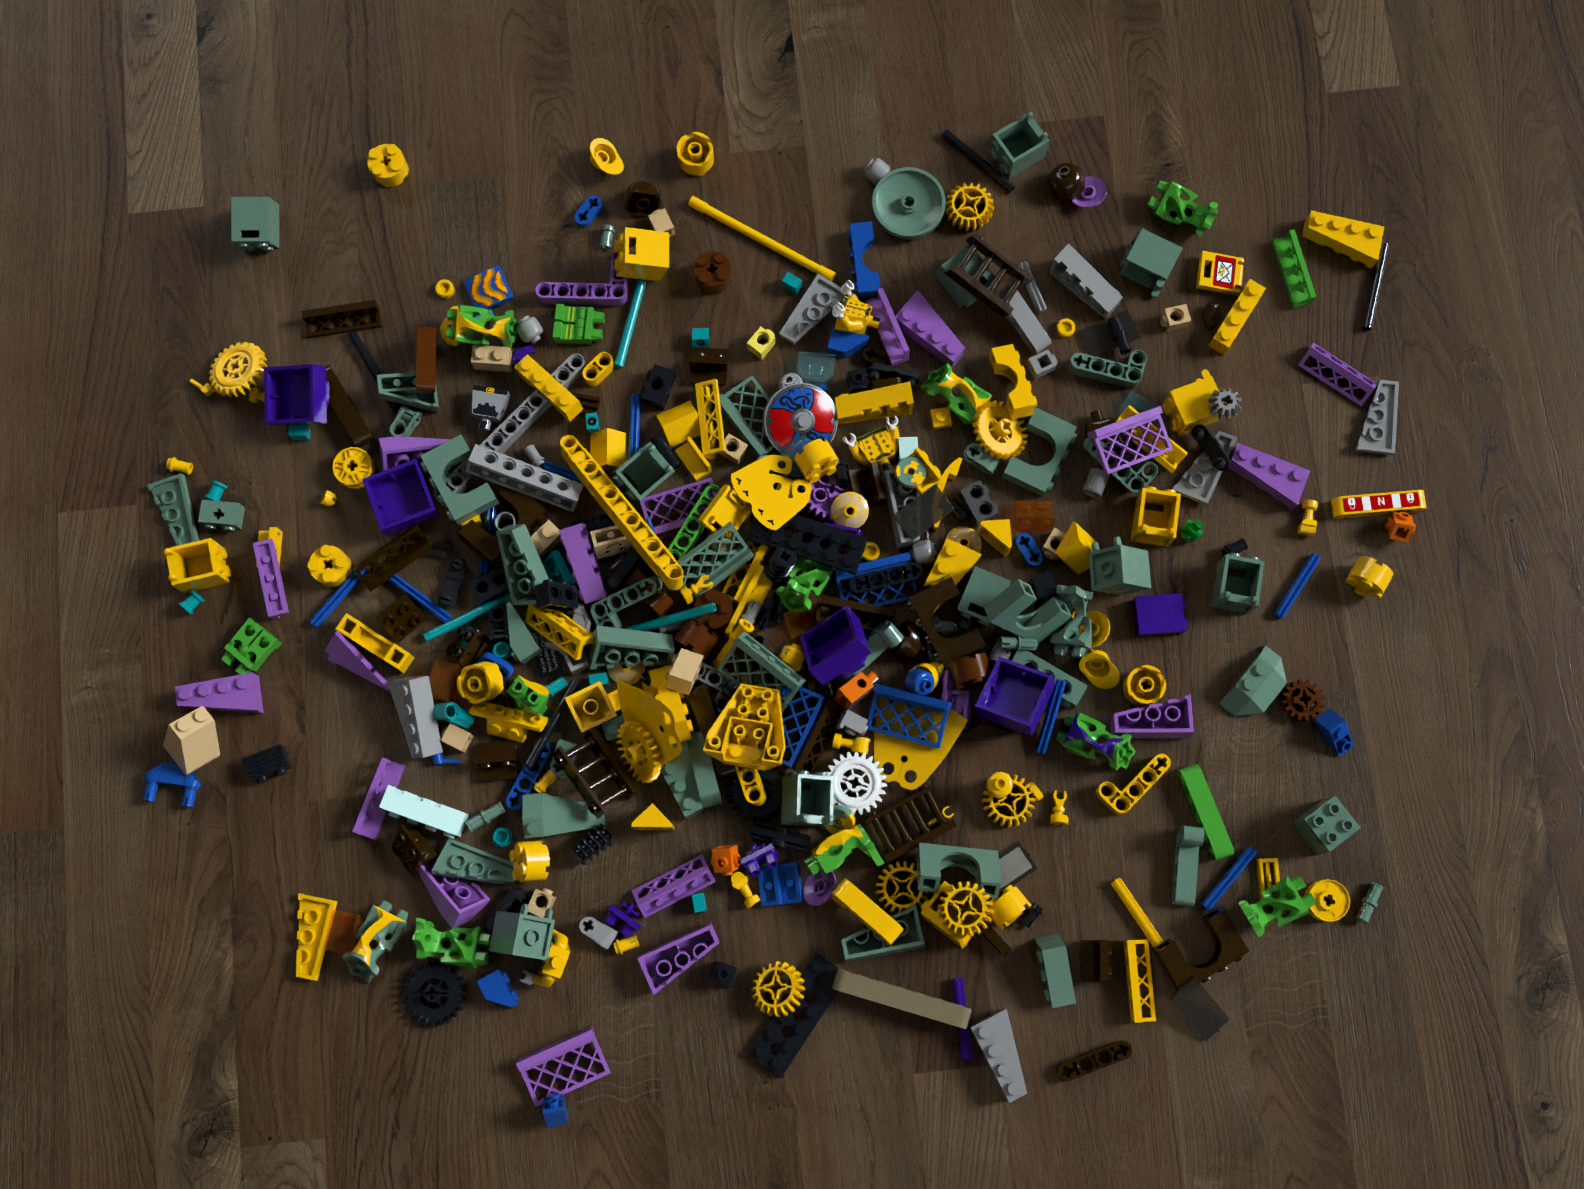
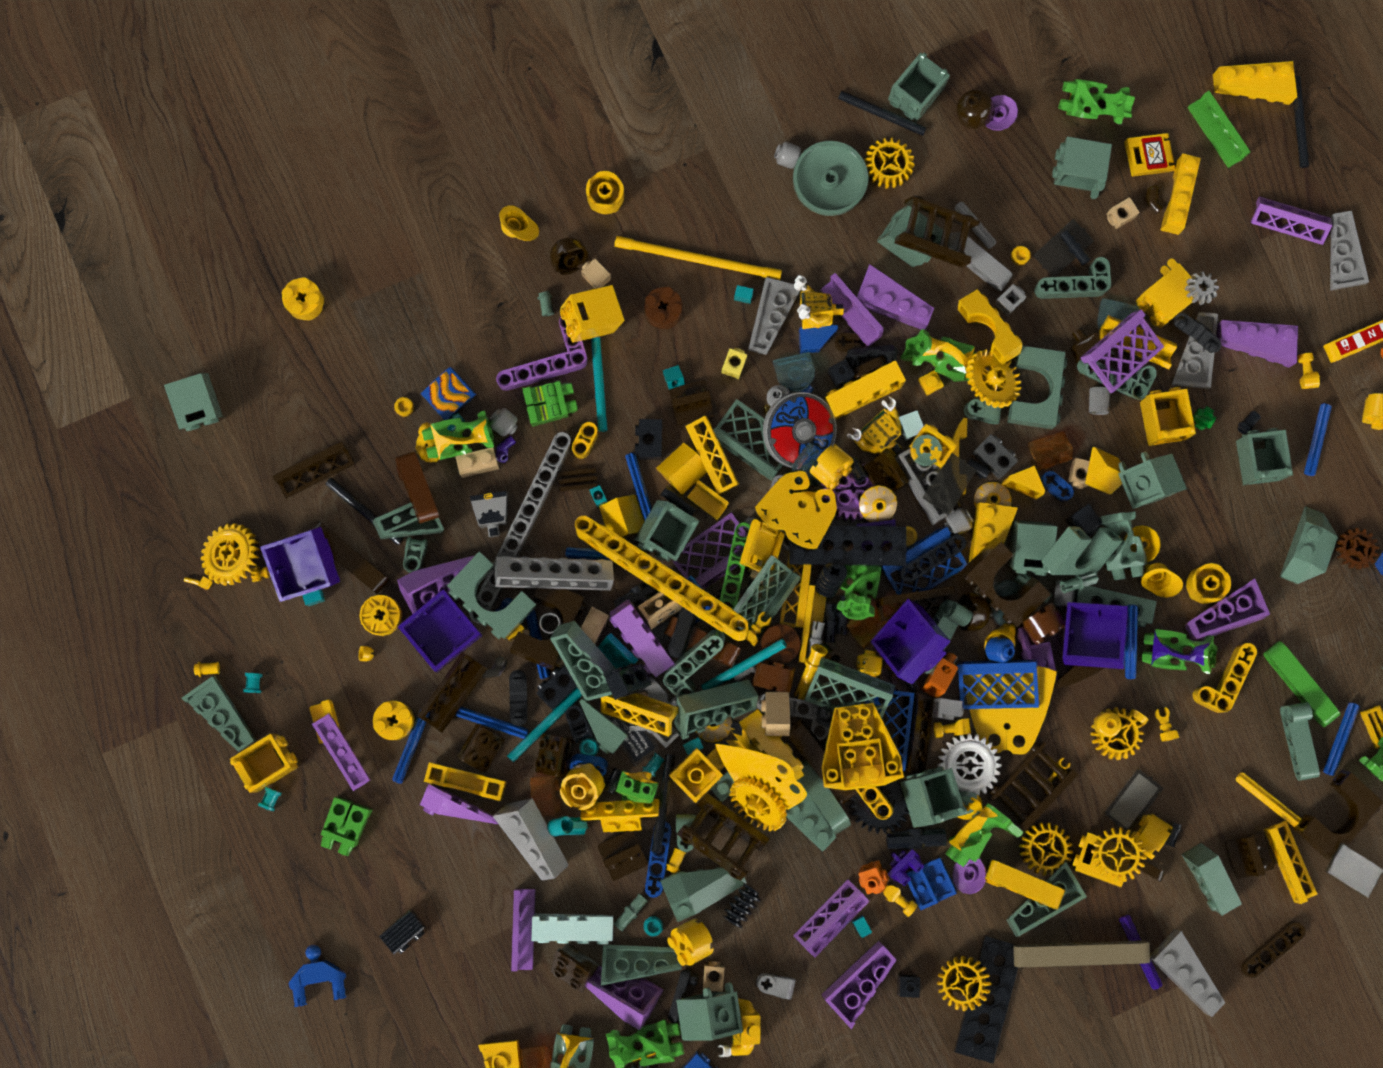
camera: 25 degrees left, 5 degrees up
(192, 740) = (325, 936): tan slope -> none
(212, 510) = (256, 702): sand green brick -> none
(226, 694) = (339, 878): medium lavender wedge -> none
(438, 760) = (567, 873): blue hand -> none
(456, 737) = (576, 846): tan brick -> none
(534, 456) = (553, 547): light grey pin -> none
(556, 393) = (544, 474): yellow arch -> none
(585, 209) = (514, 282): blue beam -> none
(615, 914) = (804, 968): dark purple hips -> none
(625, 944) = (805, 989): yellow pin -> none
(652, 820) = (792, 864): yellow slope -> none
(737, 455) = (751, 476): tan brick -> none
(861, 239) = (814, 269): blue arch -> none
(979, 862) = (1112, 802): sand green arch -> none
(1085, 281) = (1026, 205): light grey wedge -> none
(1159, 614) = (1199, 510): dark purple panel -> none

